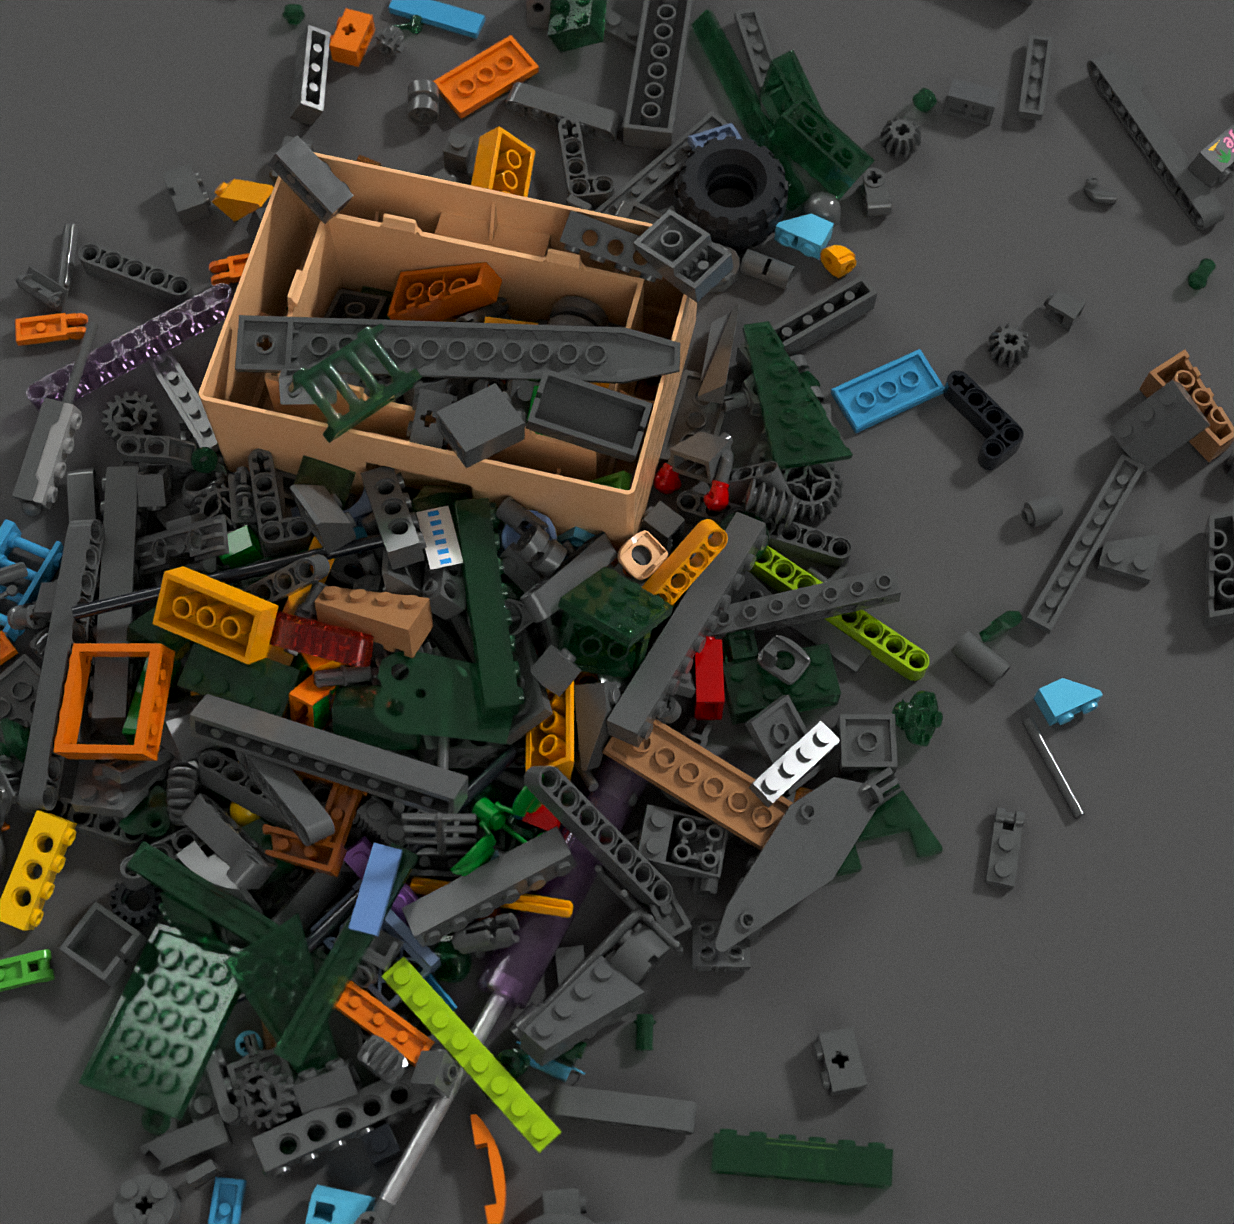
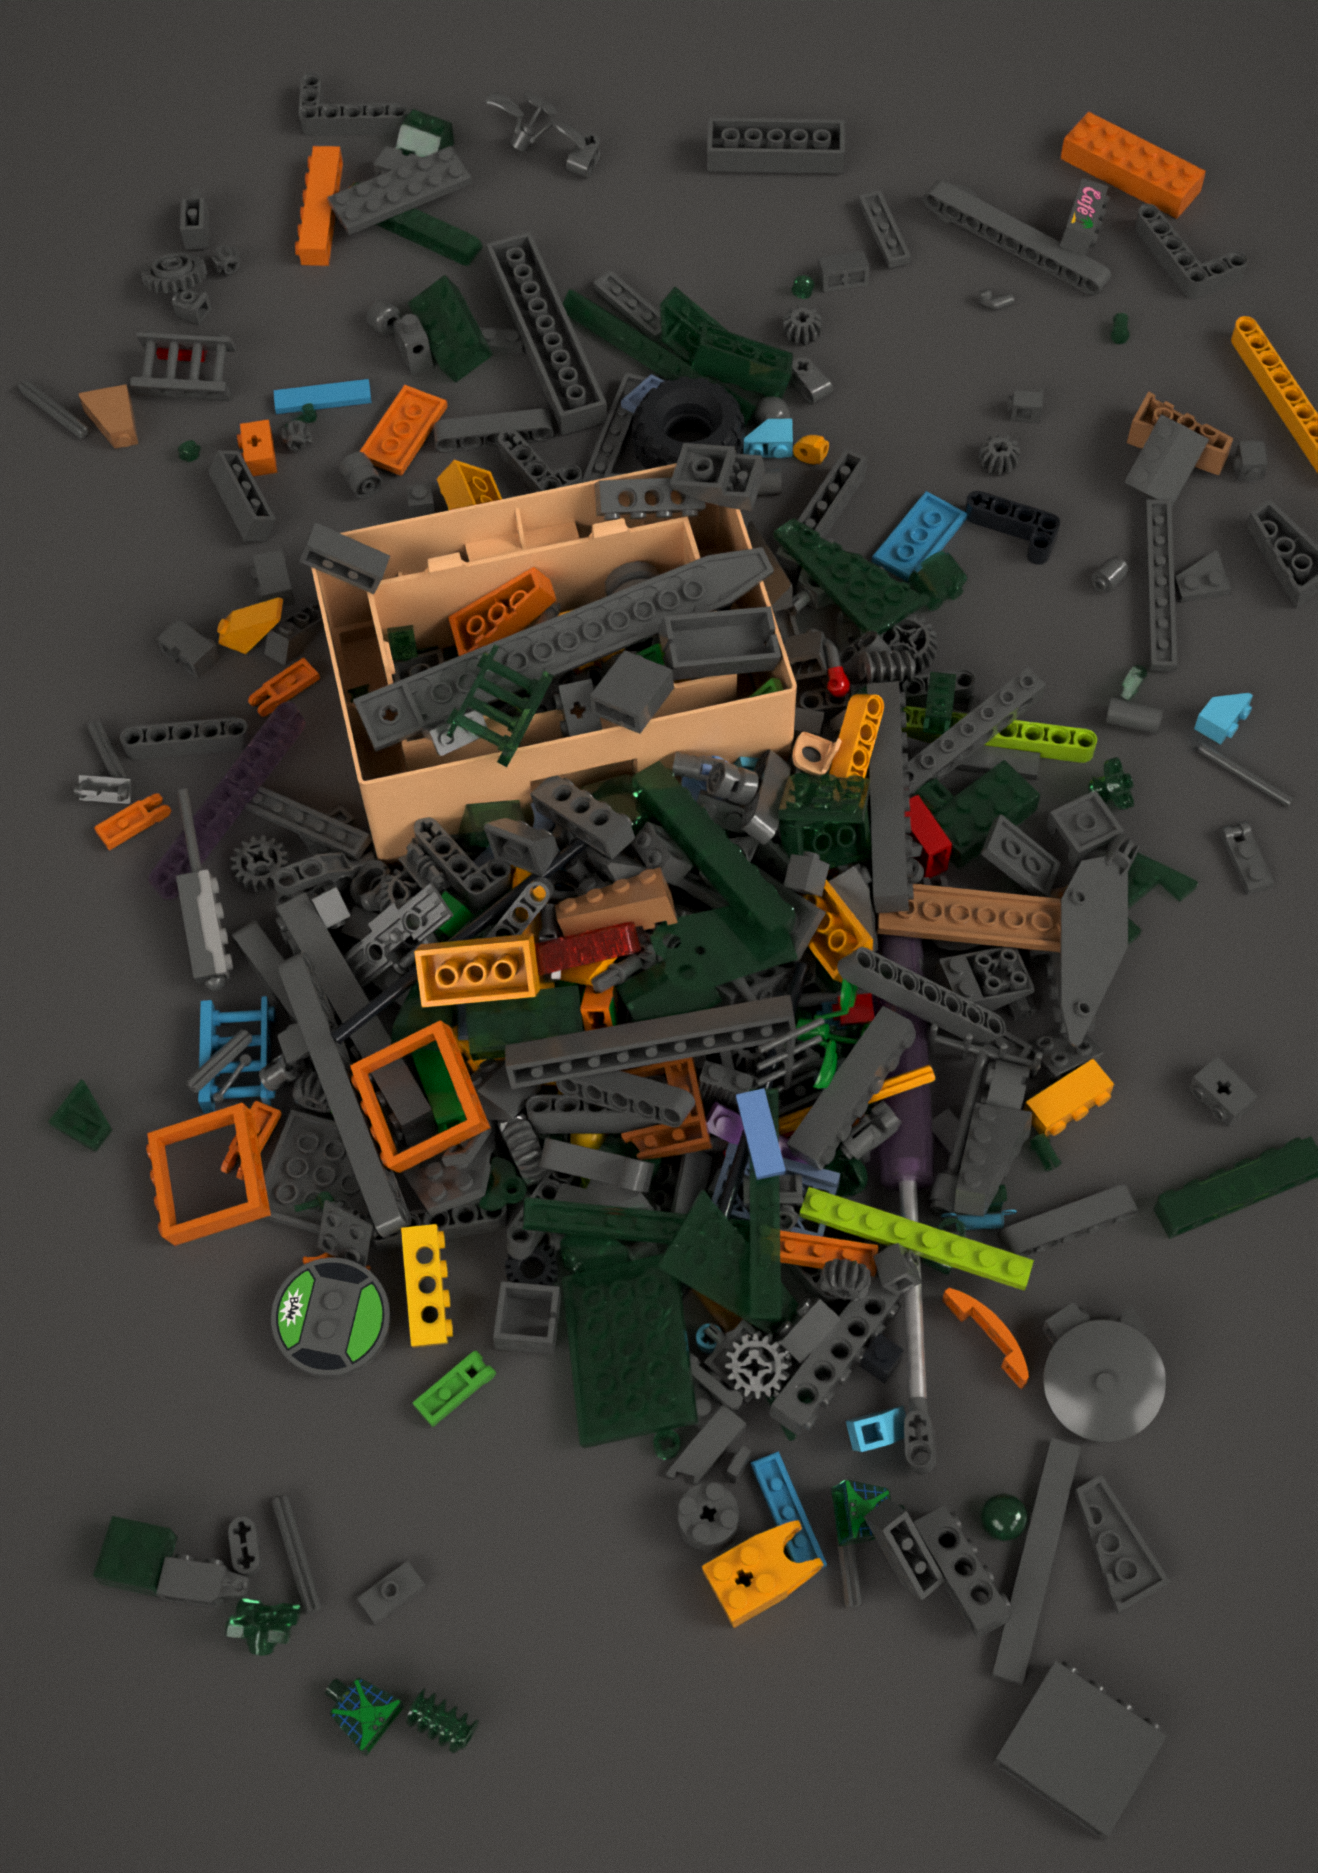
camera: 25 degrees left, 5 degrees down
(15, 737) = (341, 1181): clear green slope -> none
(206, 466) = (366, 861): clear green plate -> none
(351, 277) = (402, 642): none -> clear green bracket
(439, 537) = (645, 821): white sticker -> none
(695, 994) = (1069, 1098): none -> light orange brick
(768, 658) = (968, 784): dark grey piece -> none
(794, 764) = (1040, 867): plate -> none
(798, 560) = (939, 702): none -> clear green brick
(874, 441) = (939, 579): none -> clear green brick

